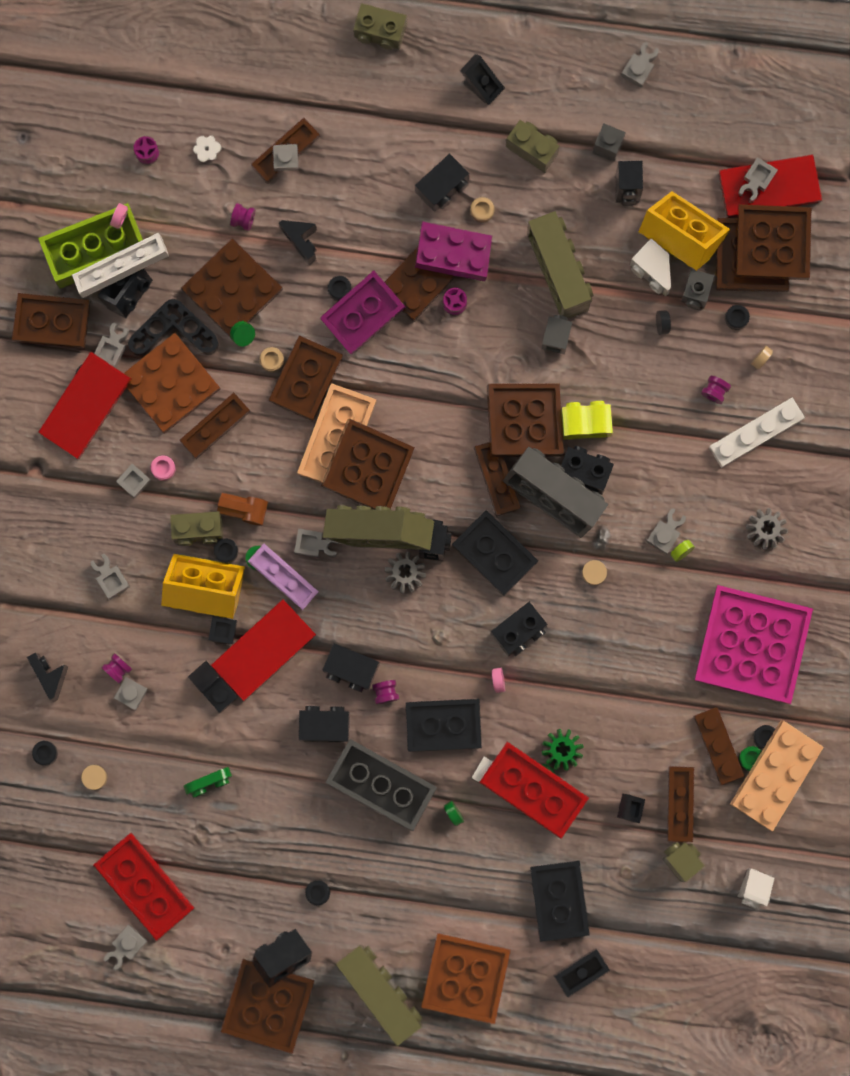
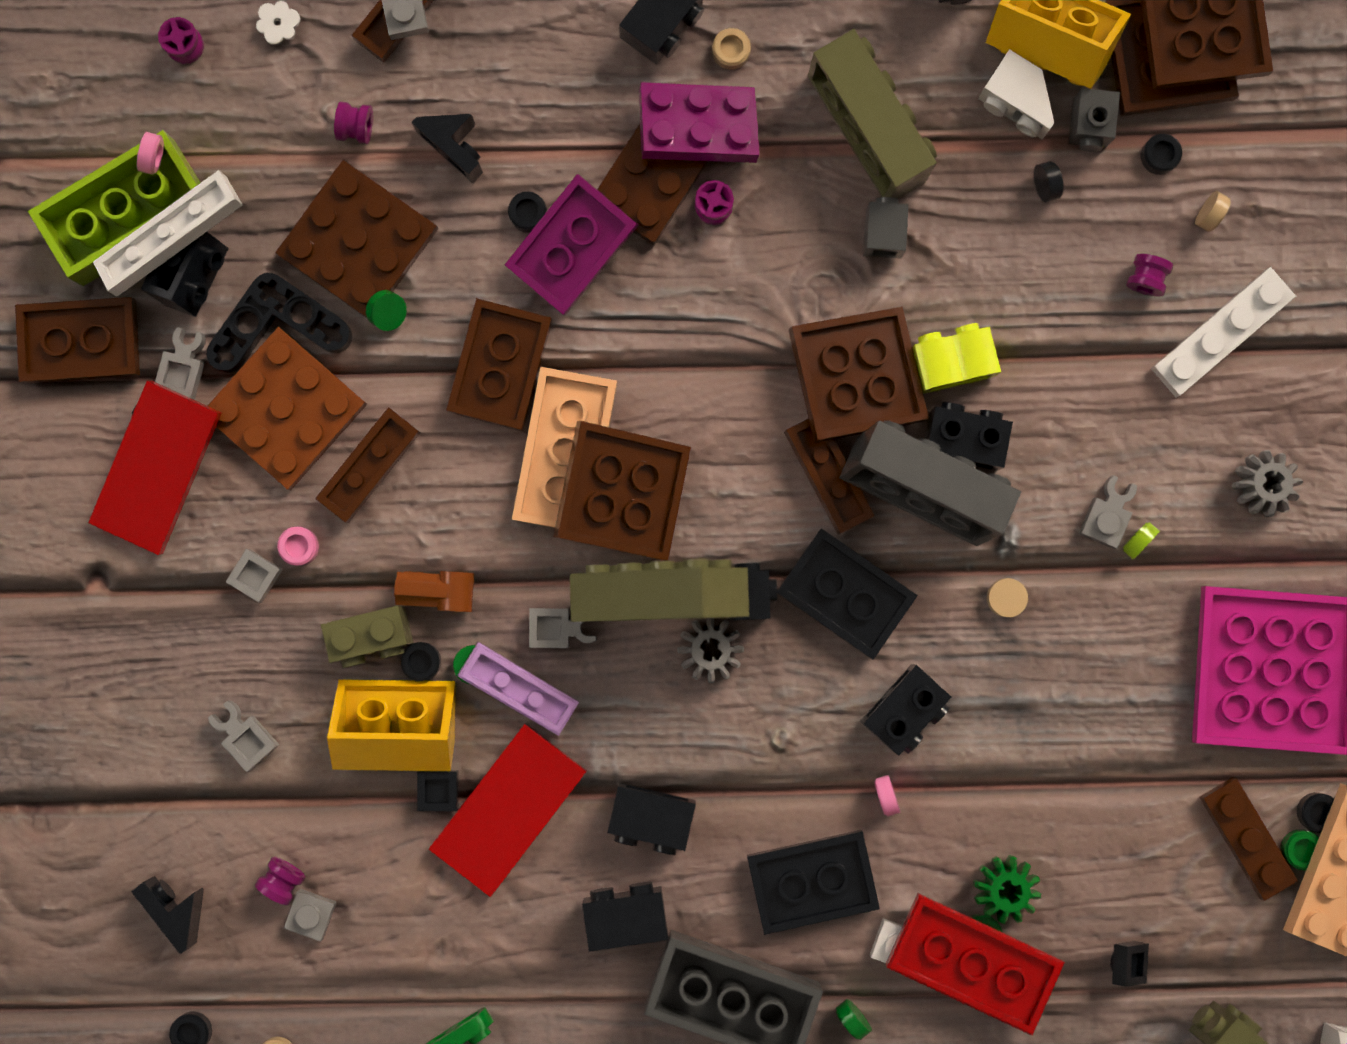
camera: 15 degrees left, 5 degrees up
(213, 687) = (436, 882): black slope -> none
(271, 359) = (440, 344): tan tile -> none
(385, 692) = (712, 845): magenta wheel -> none
(680, 804) = (1206, 942): reddish brown plate -> none

